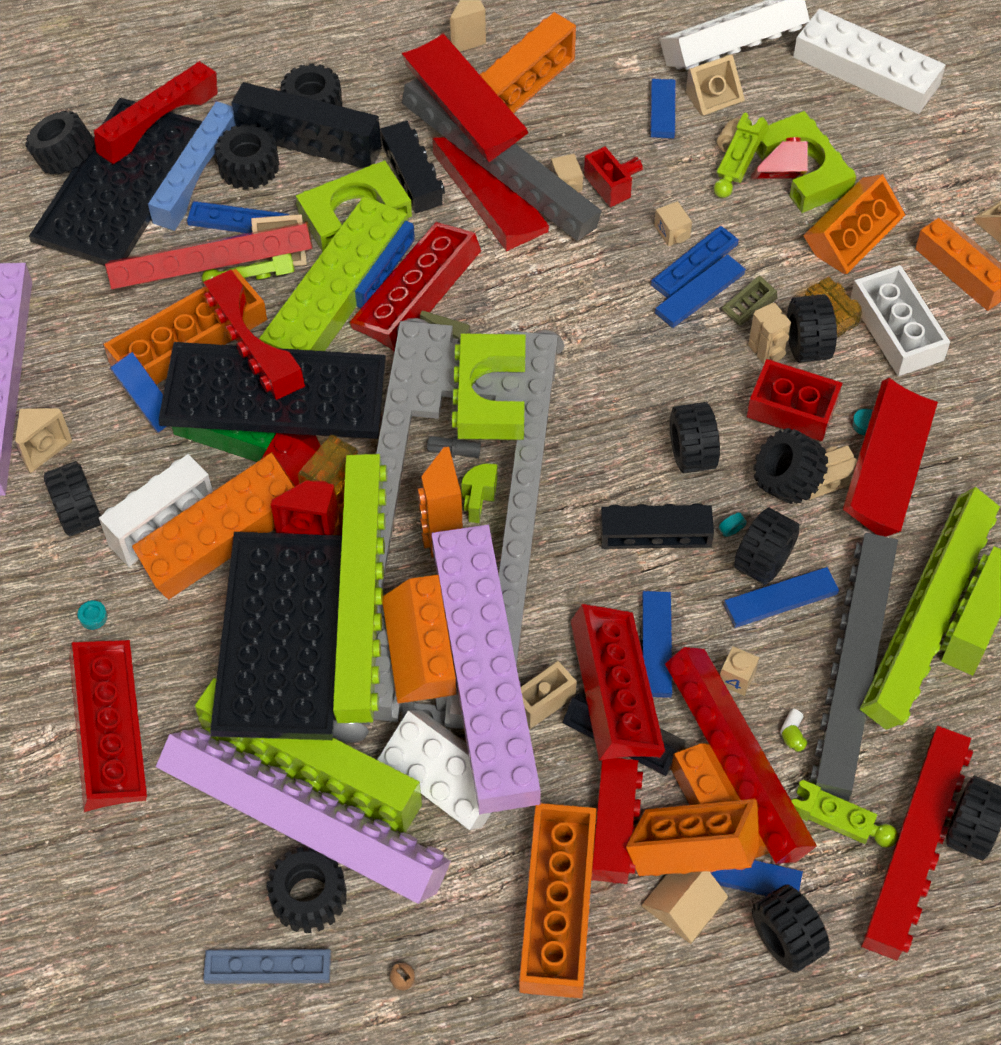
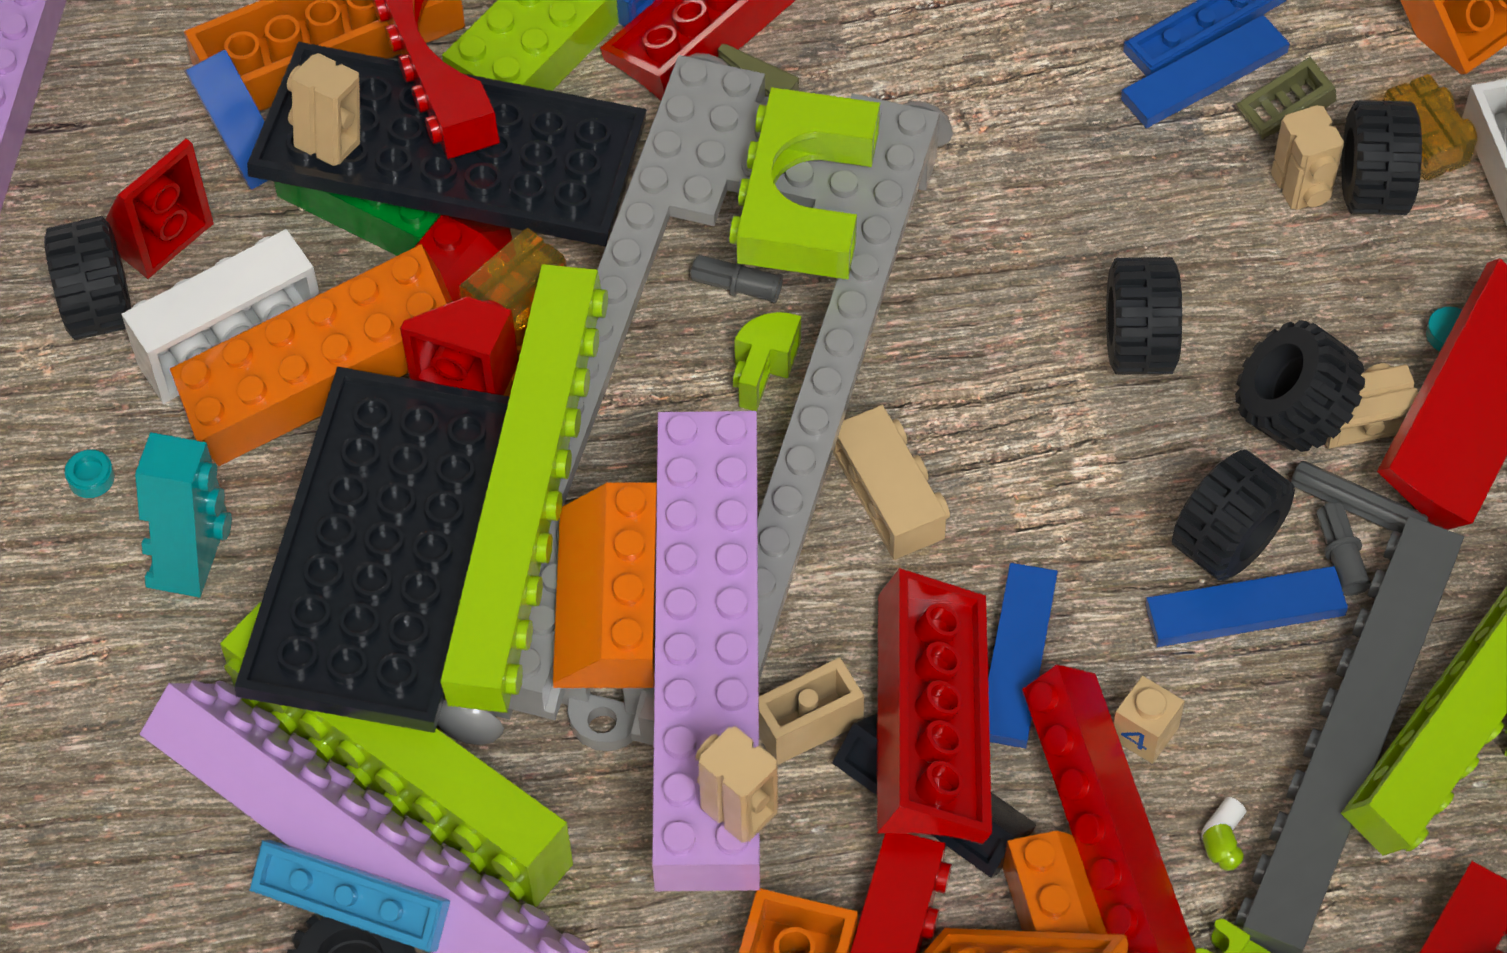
camera: 10 degrees right, 0 degrees up
(41, 435) = (56, 168): tan slope -> none
(107, 724) = (80, 654): red arch -> none
(109, 453) = (161, 211): none -> red slope
(157, 631) = (184, 512): none -> teal wedge
(200, 380) = (325, 108): none -> tan brick
(299, 844) = (350, 895): none -> dark azure tile
(439, 498) = (685, 353): orange slope -> none
(439, 762) = (605, 794): white brick -> none
(522, 744) = (737, 783): none -> tan brick
(566, 554) = (890, 482): none -> tan brick
(656, 526) = (1053, 457): black brick -> none
(732, 525) = (1184, 472): teal tile -> none
(794, 399) = (1330, 275): red brick -> none
(830, 526) = (1353, 497): none -> dark grey axle
(830, 556) = (1343, 549): none -> dark grey axle

